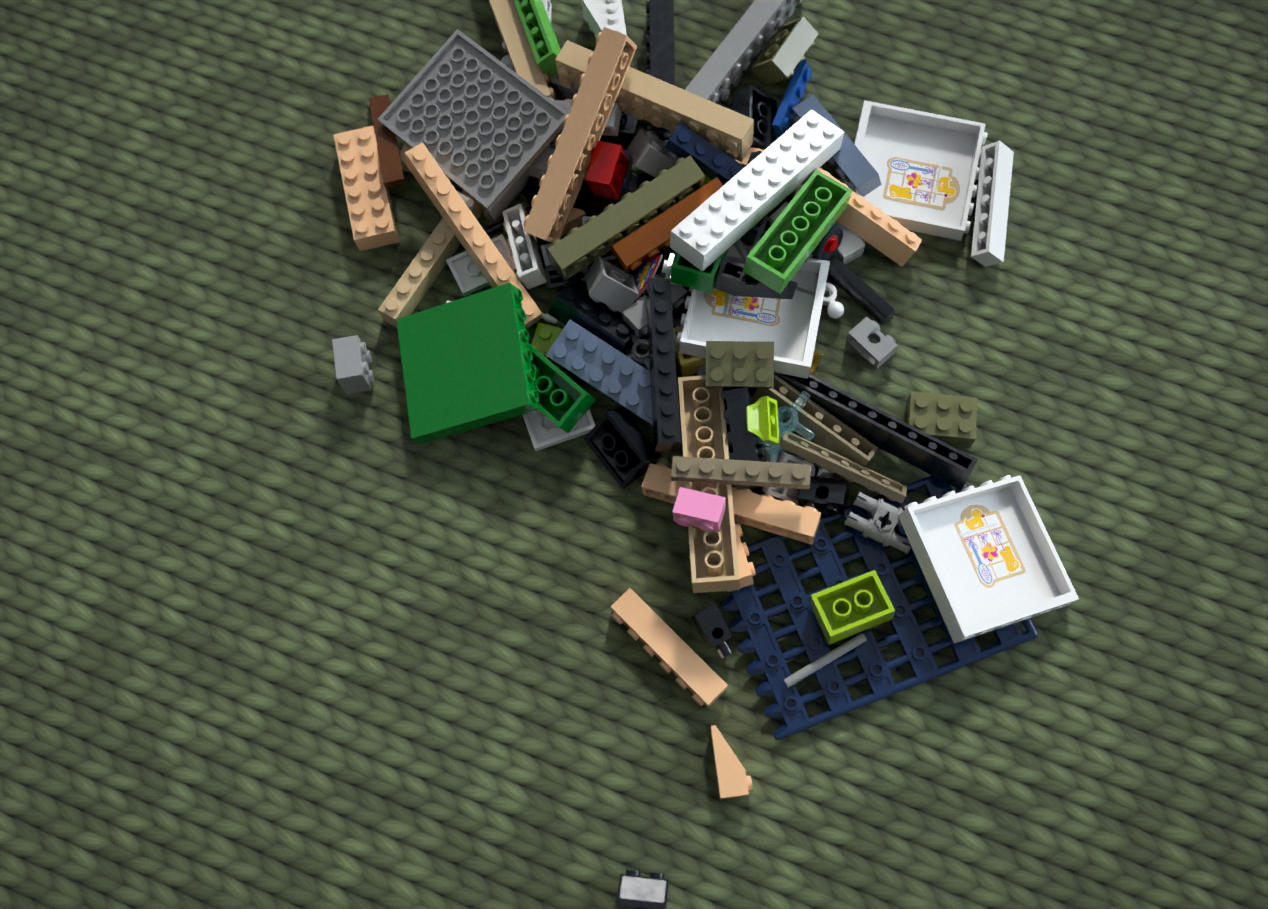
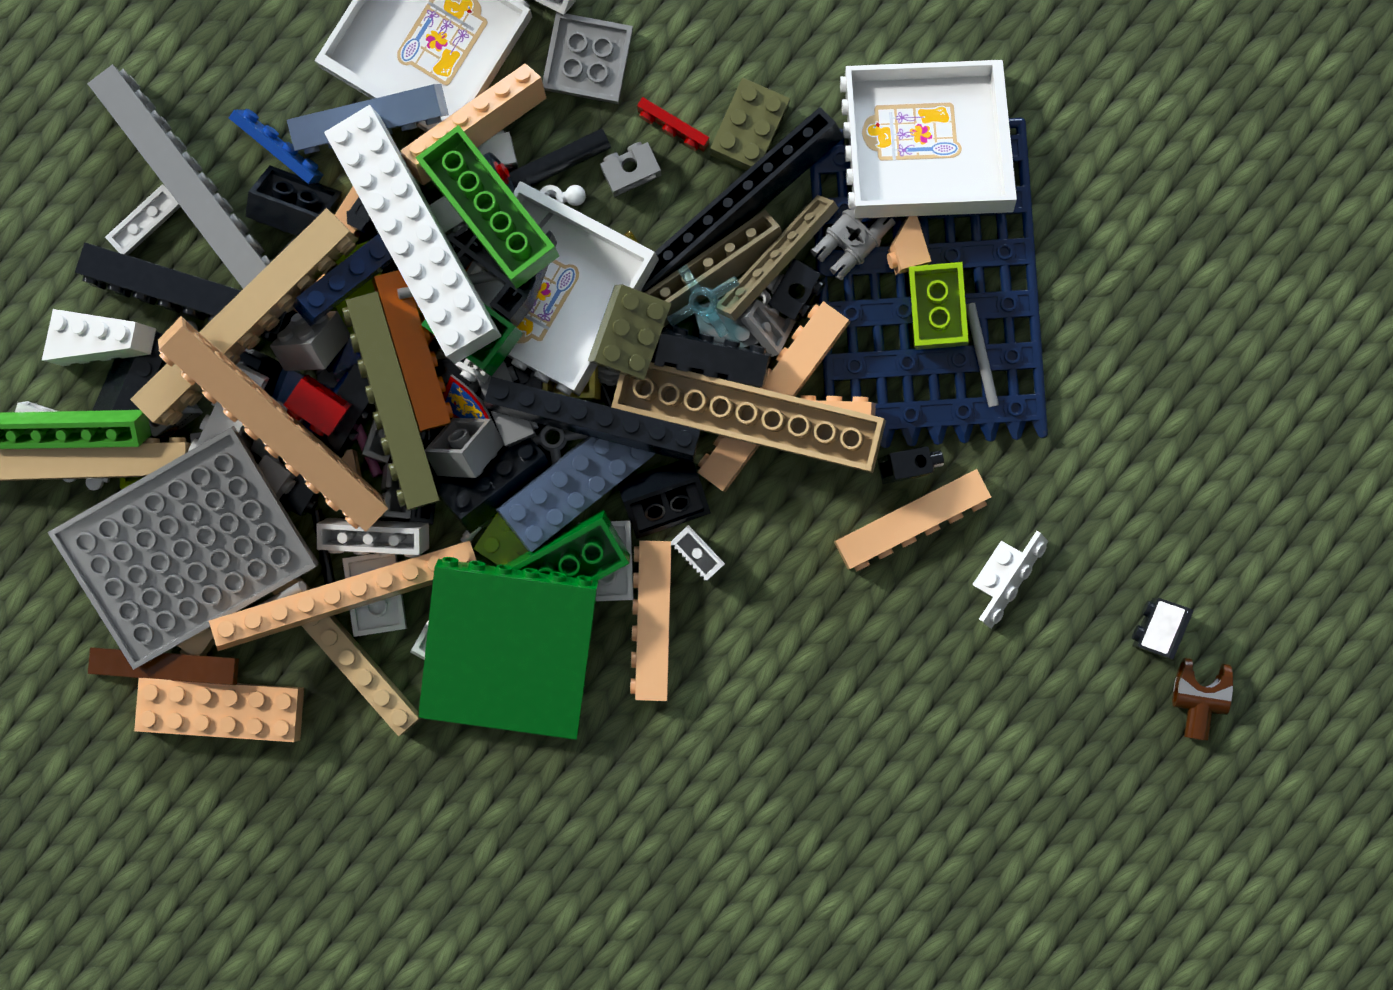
camera: 75 degrees left, 15 degrees up
(352, 364) = (459, 785): light grey brick -> none
(522, 469) = (652, 620): none -> light nougat brick
(585, 484) = (697, 553): none -> white brick
(648, 742) = (1004, 575): none -> white bracket
(699, 509) = (790, 436): bright pink brick -> none
(700, 31) = (143, 221): none -> white plate
(729, 771) = (1070, 497): light nougat slope -> none
(741, 472) = (758, 374): dark tan plate -> none
(763, 420) = (702, 327): lime slope -> none
(784, 51) = (212, 132): olive brick -> none
(892, 567) = (908, 247): none -> light nougat slope
(918, 361) = (672, 125): none -> red plate
(945, 286) = (587, 57): none -> light grey plate

